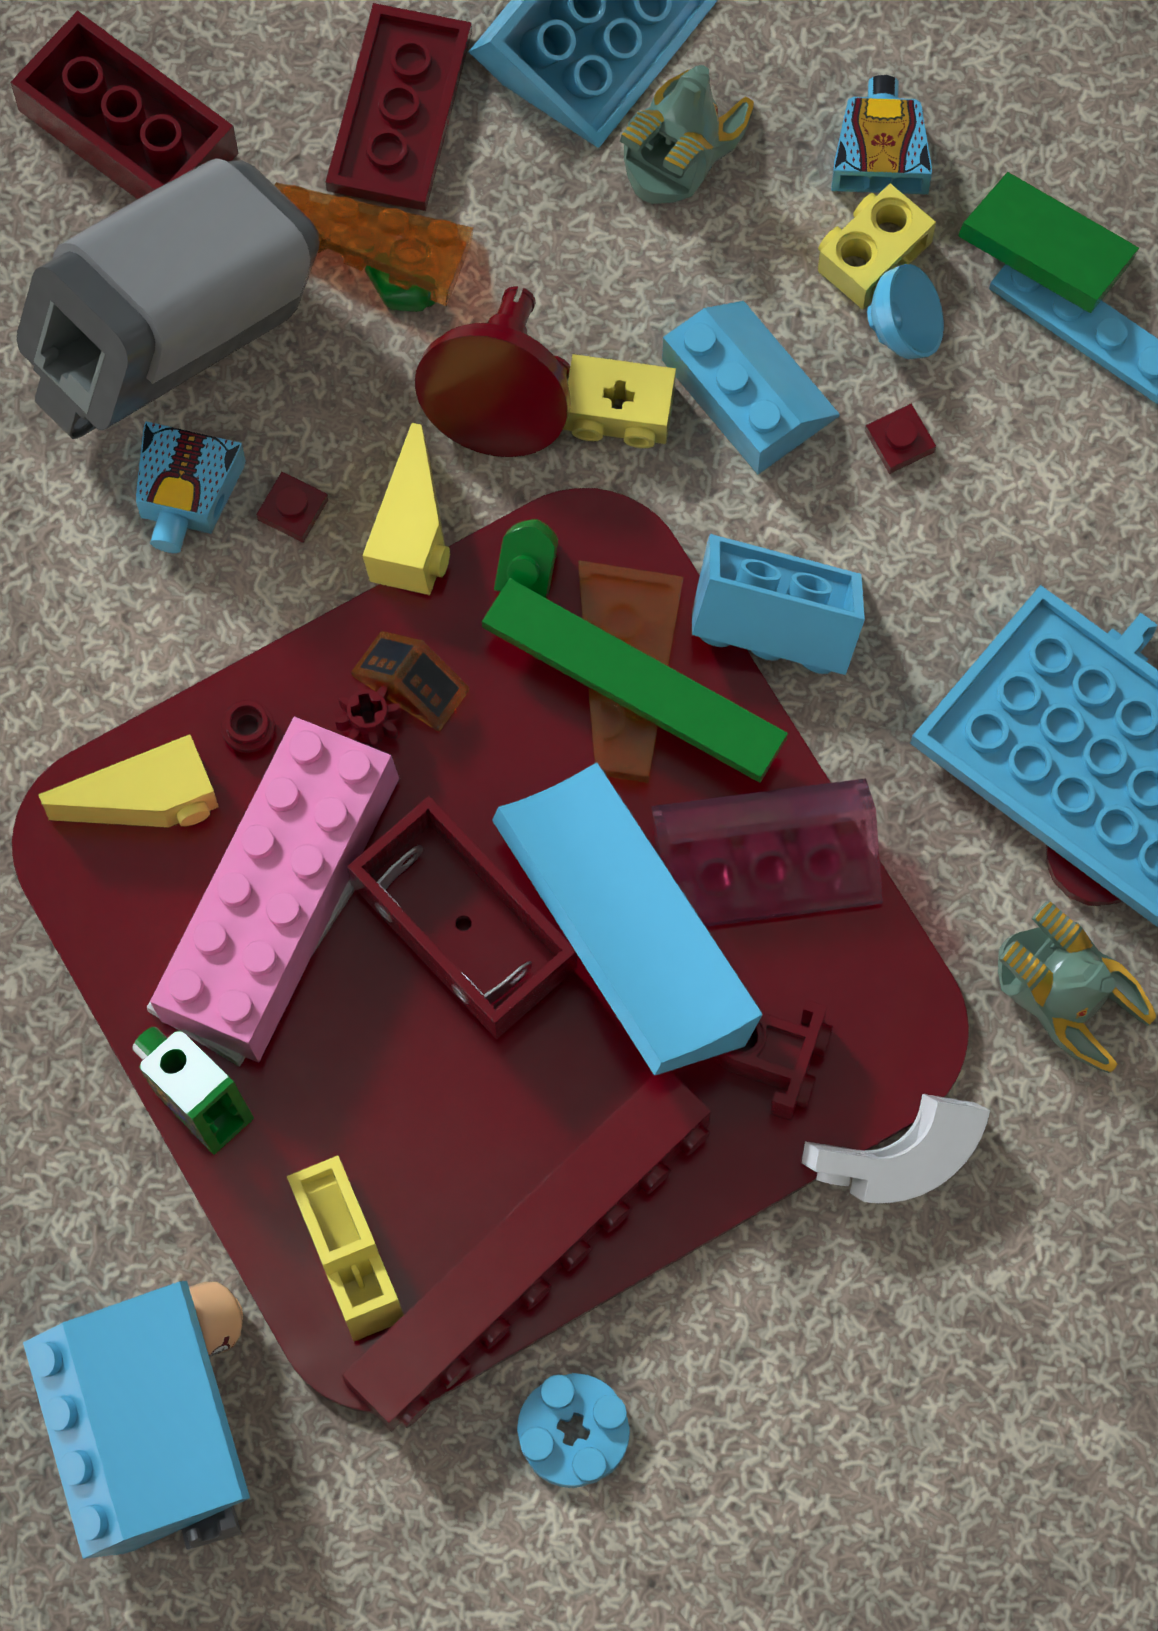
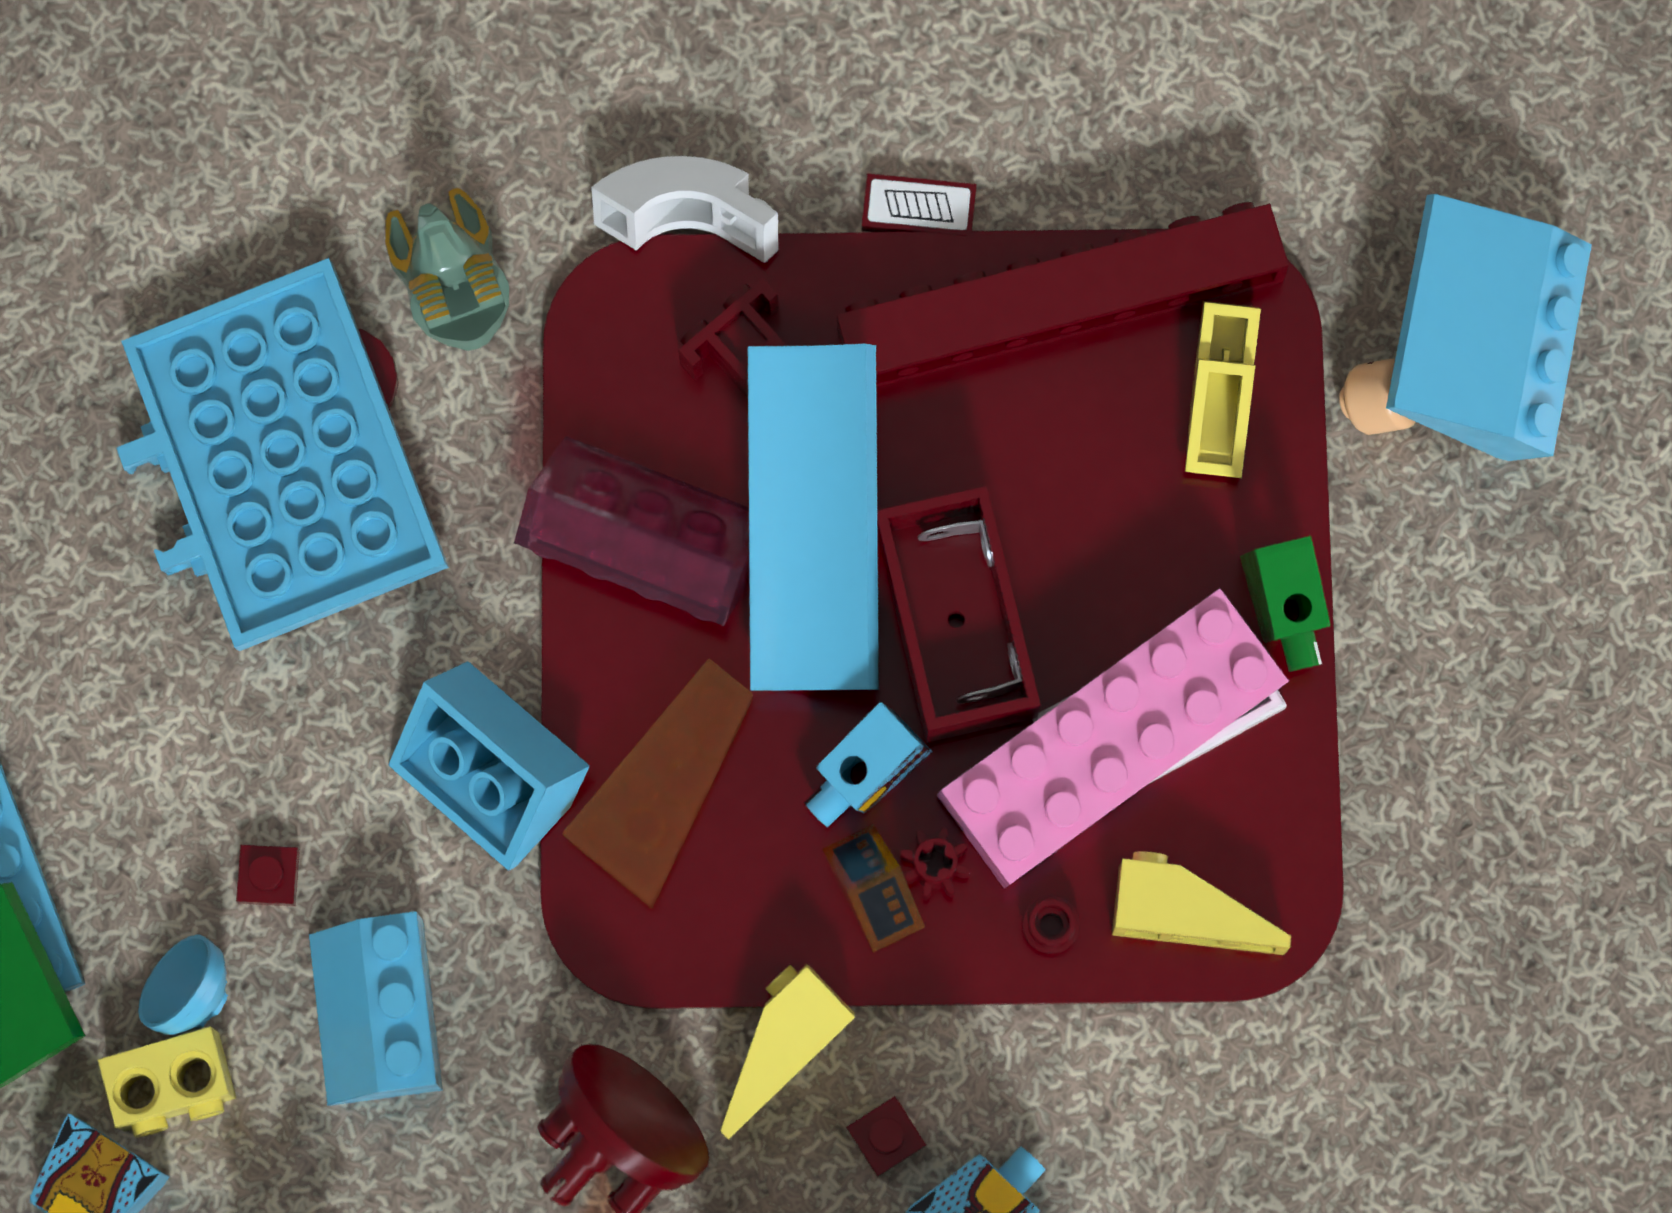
camera: 150 degrees left, 5 degrees up
(466, 759) = (889, 753): none -> medium azure torso
(528, 556) = (695, 938): green plate -> none
(587, 1459) = (1102, 171): medium azure plate -> none
(634, 680) = (670, 753): green tile -> none
(647, 395) = (479, 1047): light yellow brick -> none
(704, 1276) = (918, 205): none -> tile

